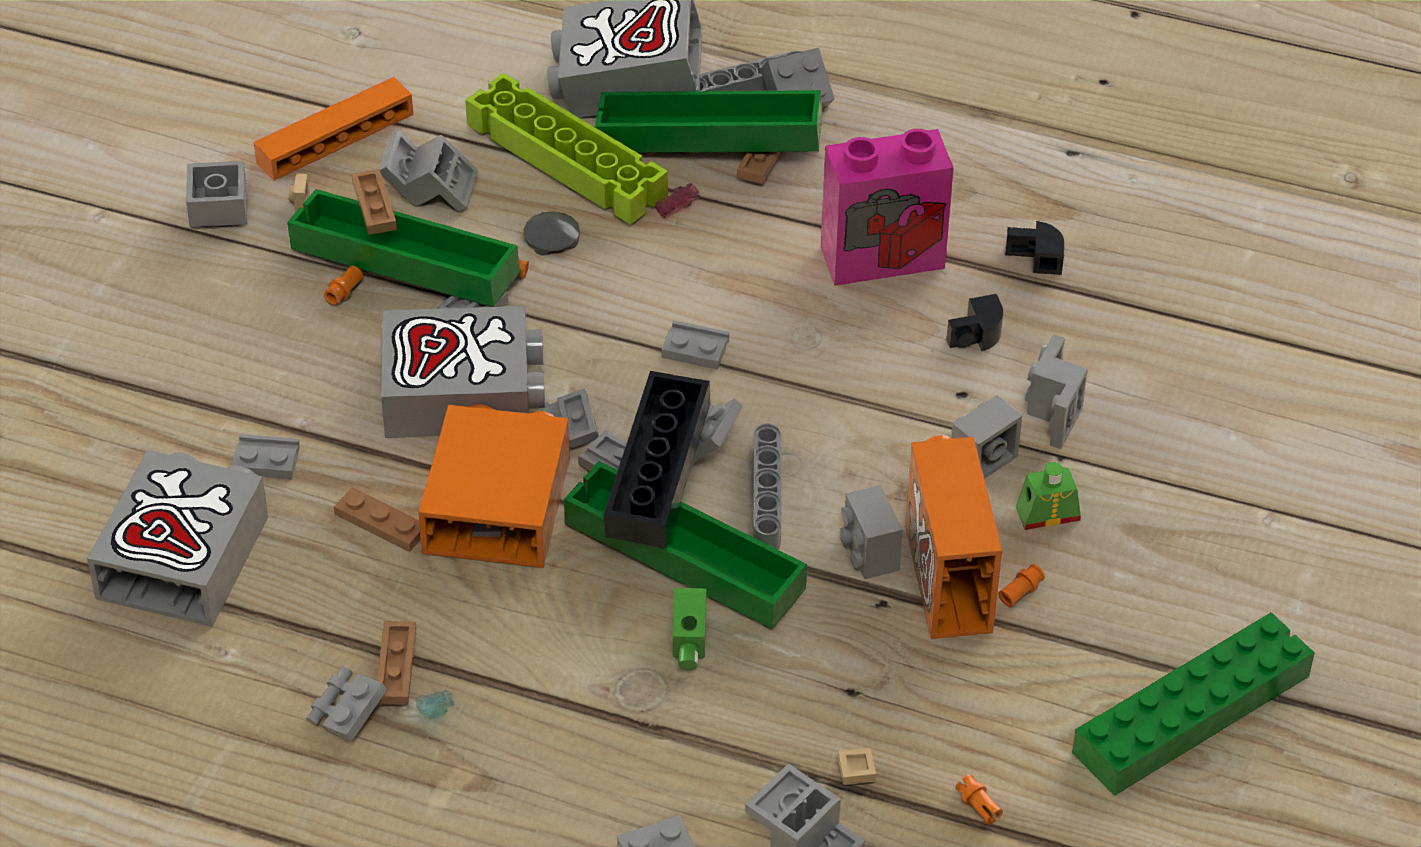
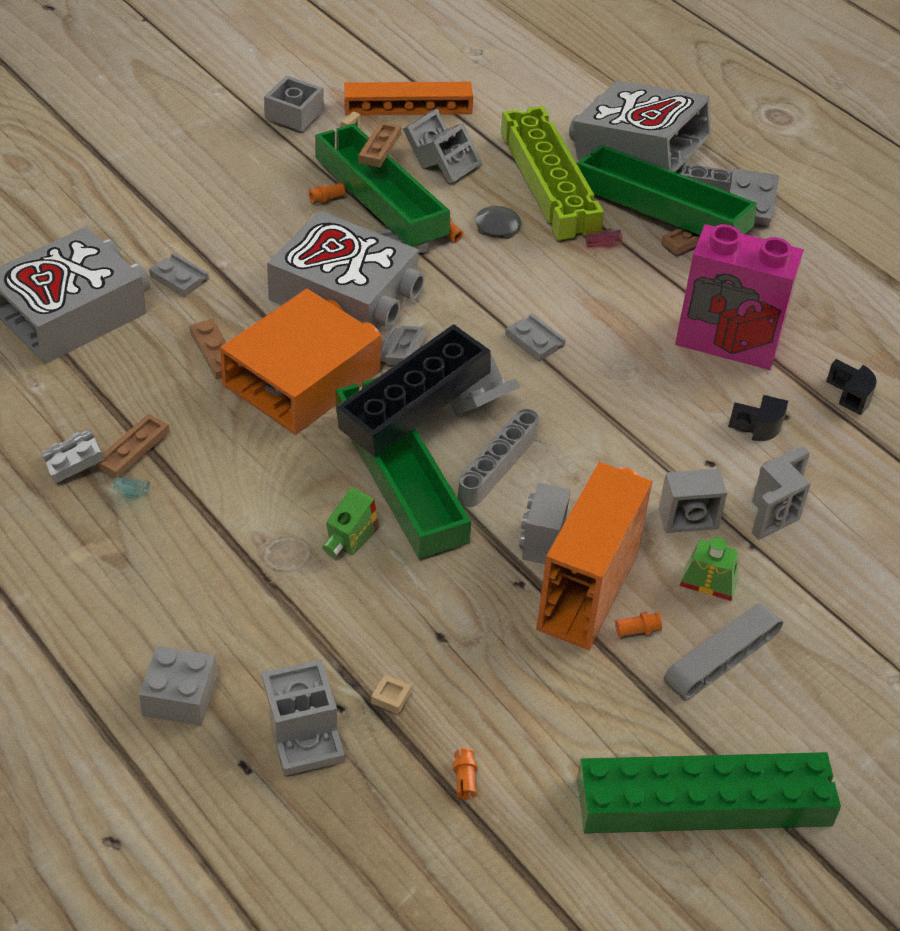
camera: 30 degrees right, 0 degrees up
(1113, 569) = (723, 651): none -> light grey beam

